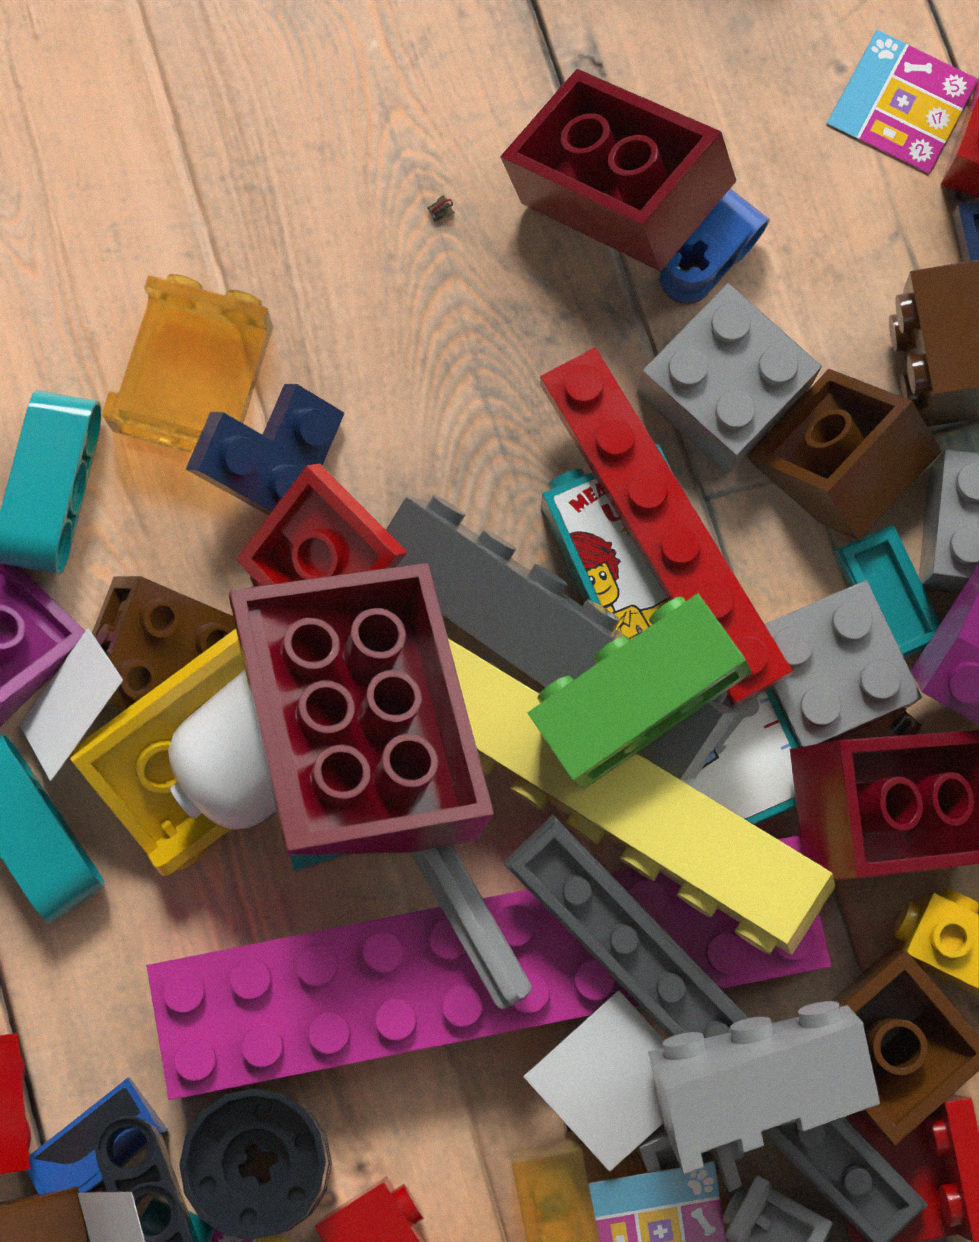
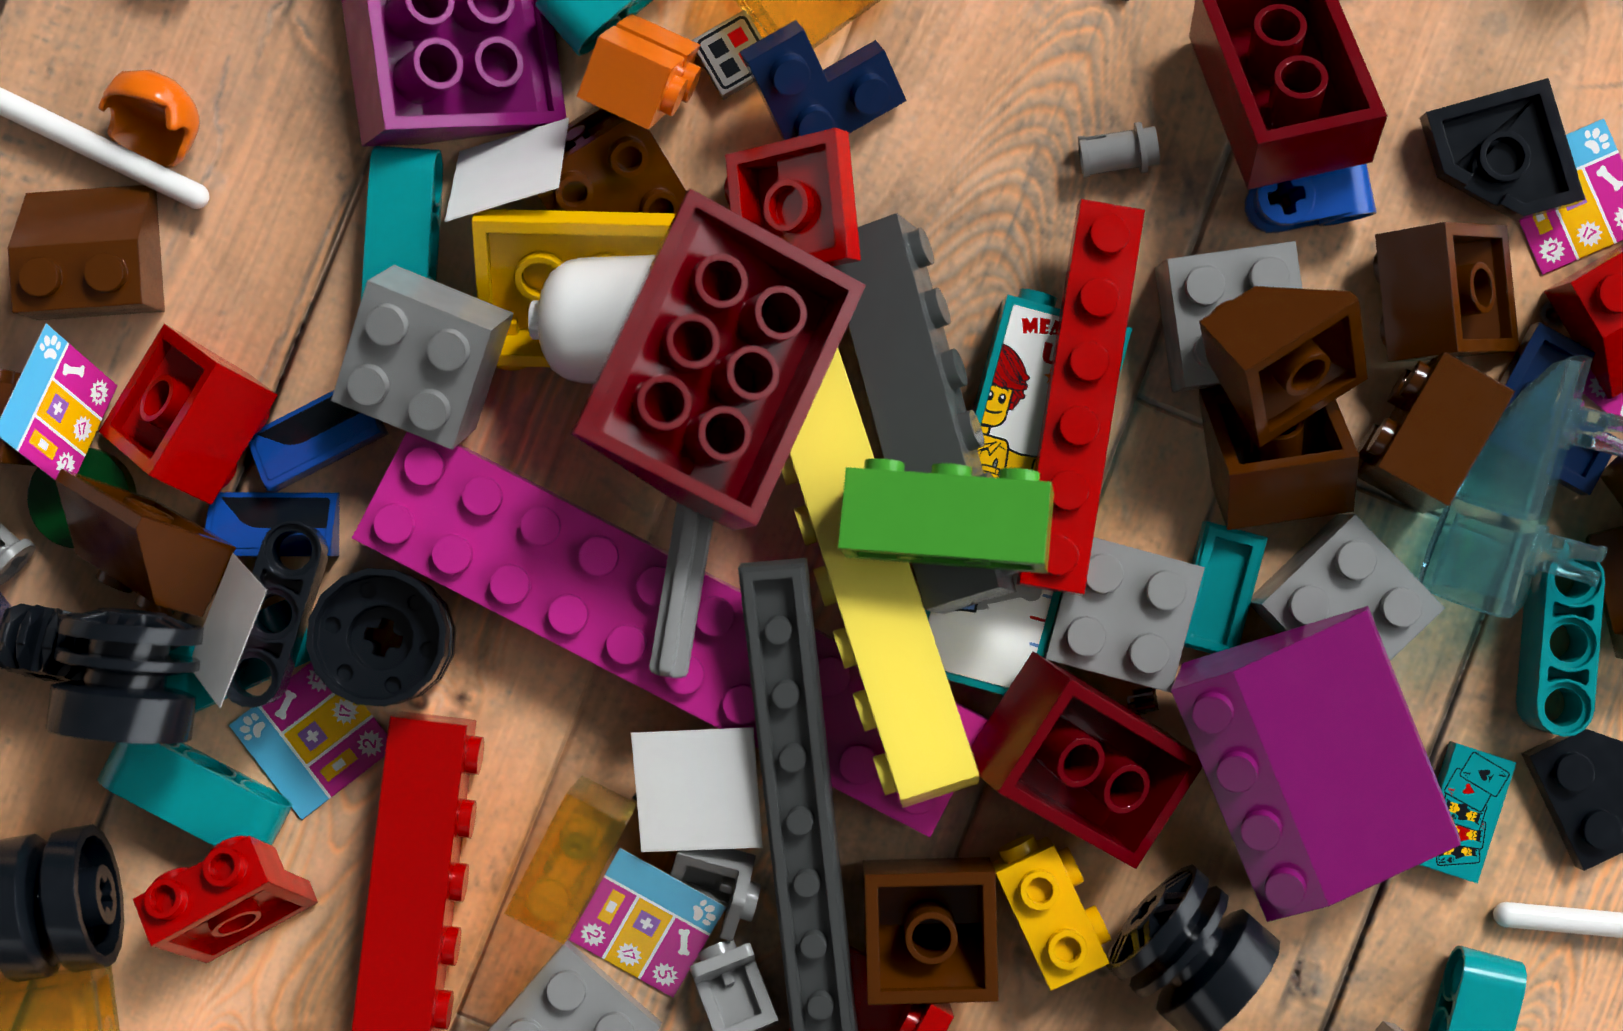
camera: 45 degrees right, 10 degrees up
(74, 1044) = (310, 441): none -> blue slope
(113, 904) = (421, 356): none -> light grey brick
(118, 545) = (640, 71): none -> orange piece
(174, 487) = (721, 54): none -> light grey tile
(538, 324) = (1119, 151): none -> light grey pin
(761, 1079) = (803, 880): light grey wedge -> none
(791, 367) = (1285, 354): none -> reddish brown slope
(826, 104) = (1506, 151): none -> black plate
(868, 237) = (1446, 291): none -> reddish brown slope

